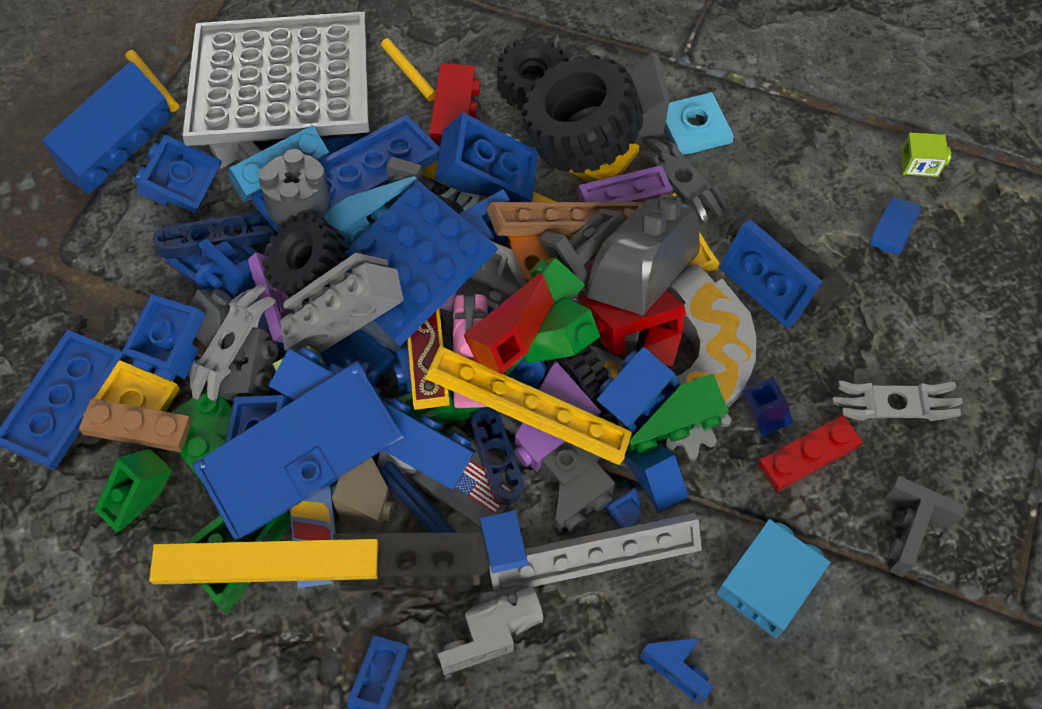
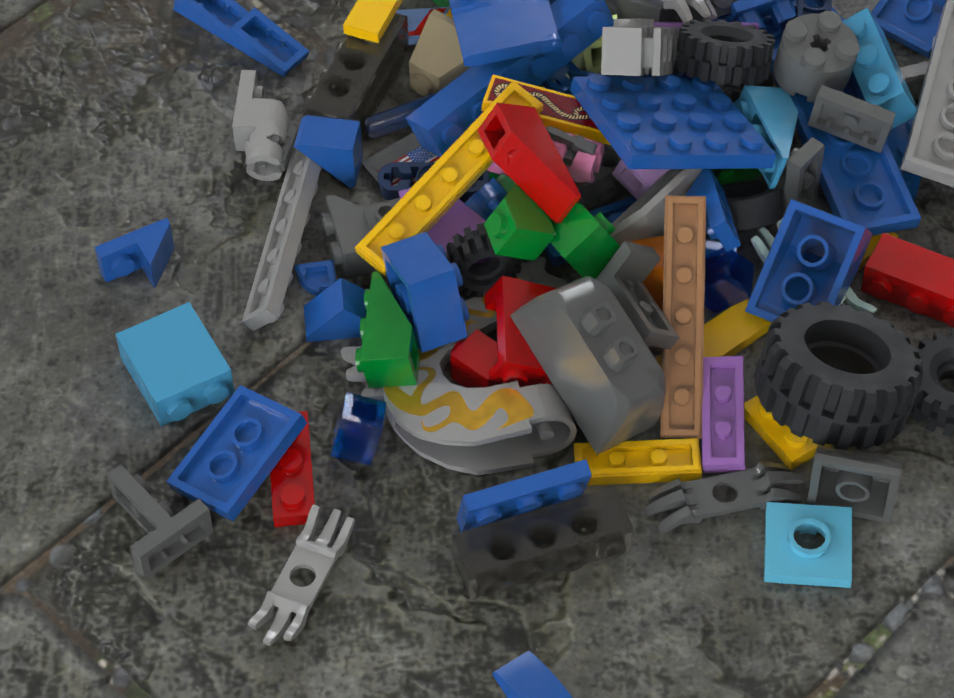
camera: 115 degrees right, 10 degrees down
(345, 156) = (851, 118): none -> dark grey bracket
(833, 485) = (236, 452): none -> blue plate

